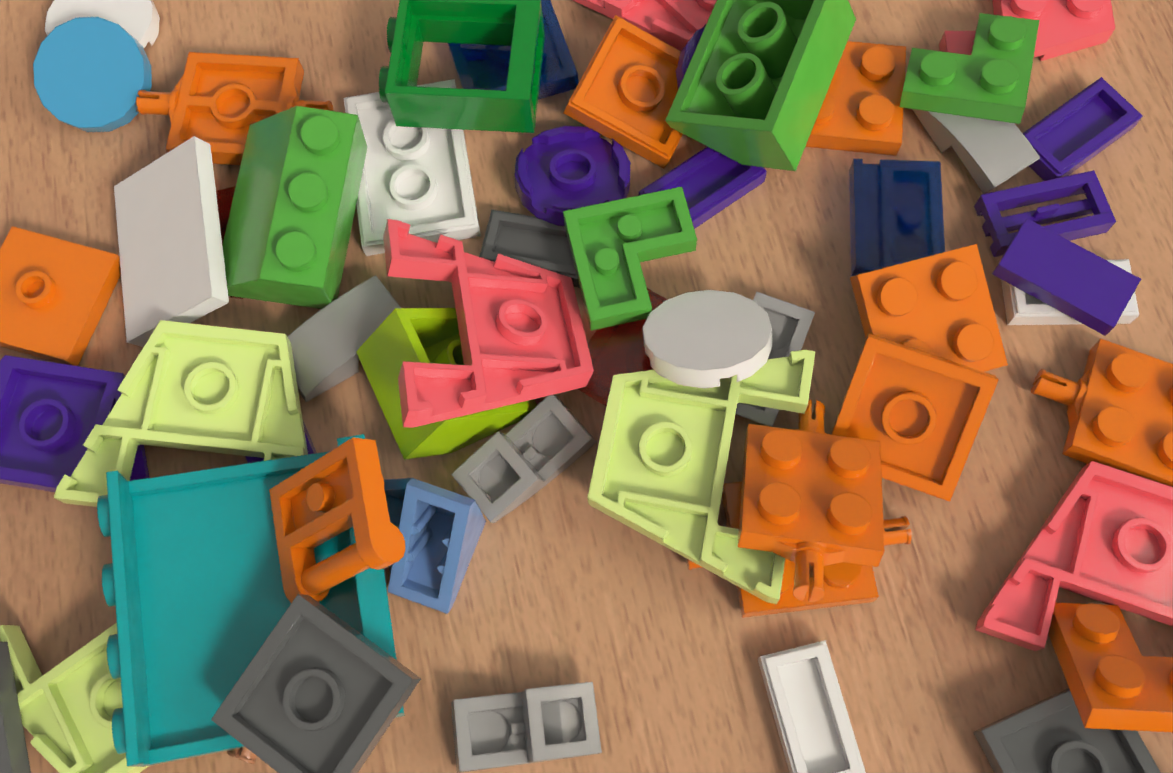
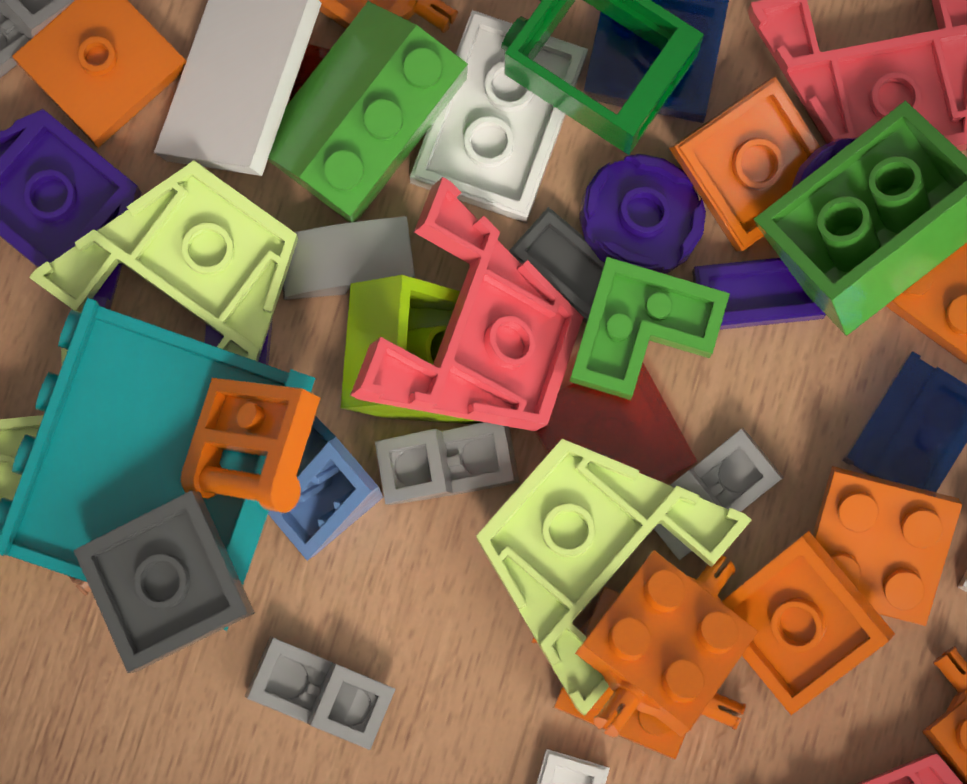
camera: 25 degrees right, 10 degrees up
(707, 338) = (664, 452): white tile -> none

